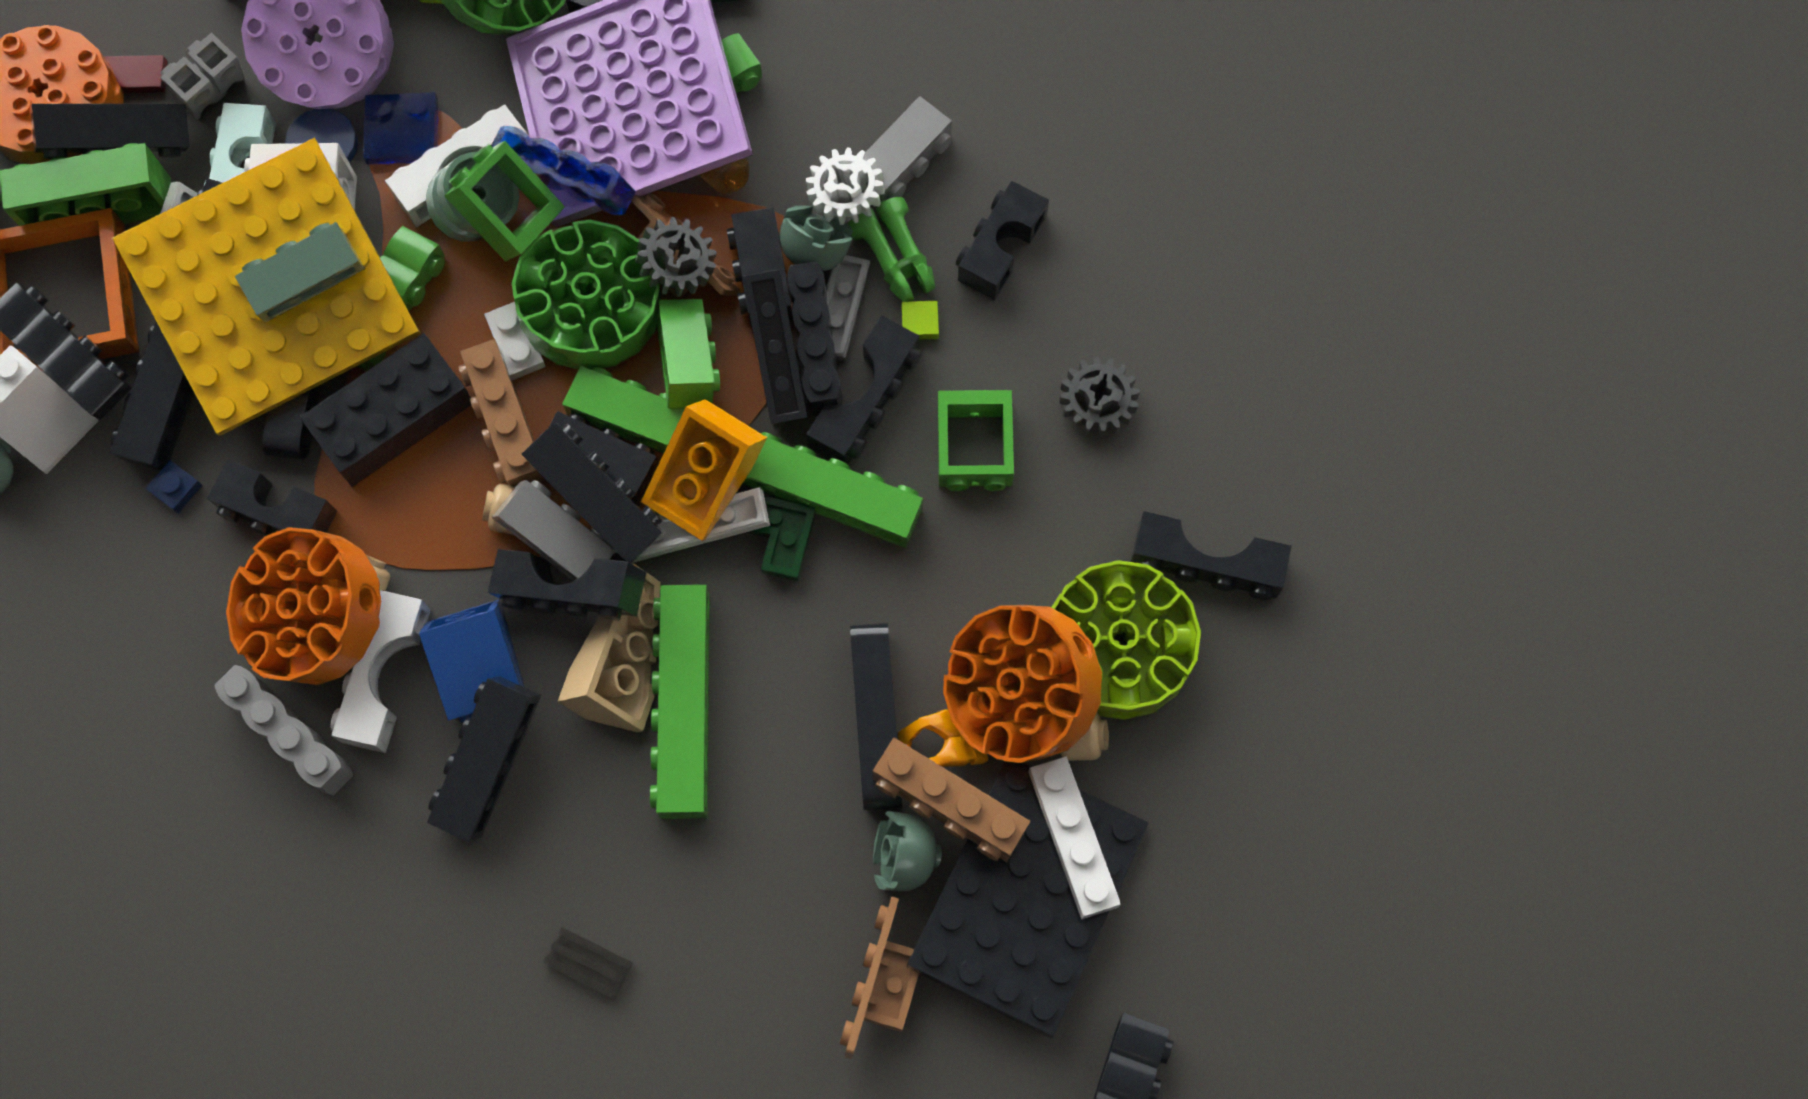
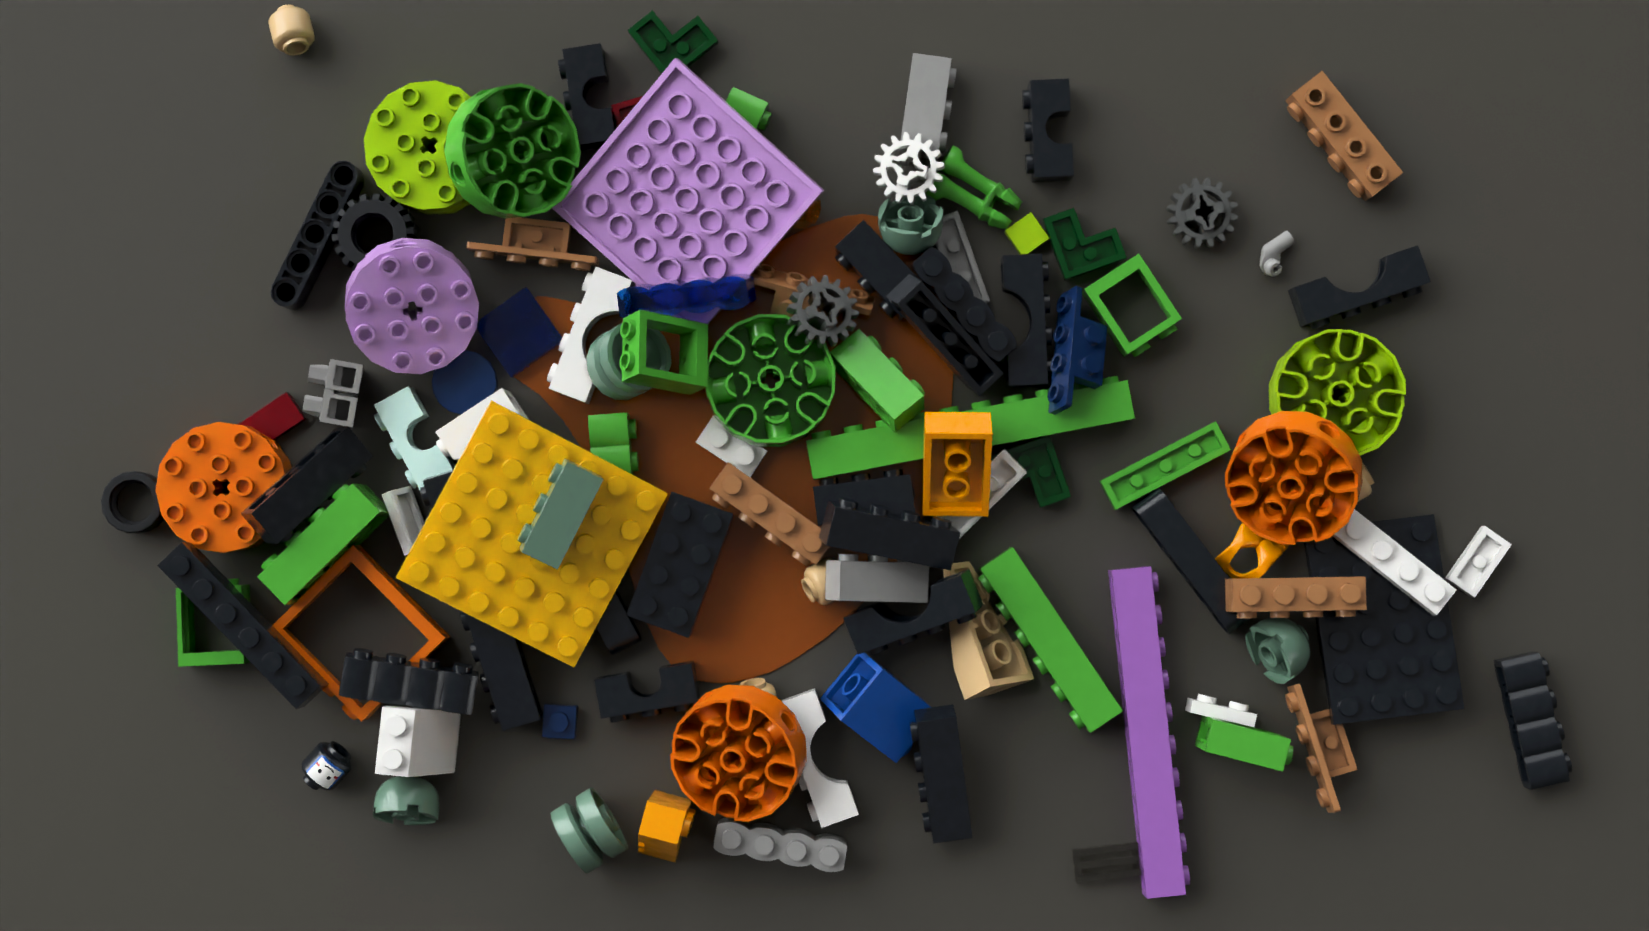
camera: 30 degrees left, 15 degrees up
(114, 594) = (589, 830): none -> sand green wheel
(183, 632) = (664, 824): none -> light orange wedge
(471, 58) = (535, 240): none -> medium nougat bracket
(714, 857) = (1147, 731): none -> medium lavender brick
(793, 868) = (1235, 713): none -> white plate
(802, 922) = (1244, 743): none -> bright green window
(894, 444) = (1077, 351): none -> dark blue bracket
(905, 606) = (1165, 465): none -> bright green plate
(956, 362) = (1075, 252): none -> dark green plate
(1144, 475) = (1271, 253): none -> light grey arm
(1165, 899) = (1478, 561): none -> white plate
(1281, 409) = (1342, 136): none -> medium nougat brick

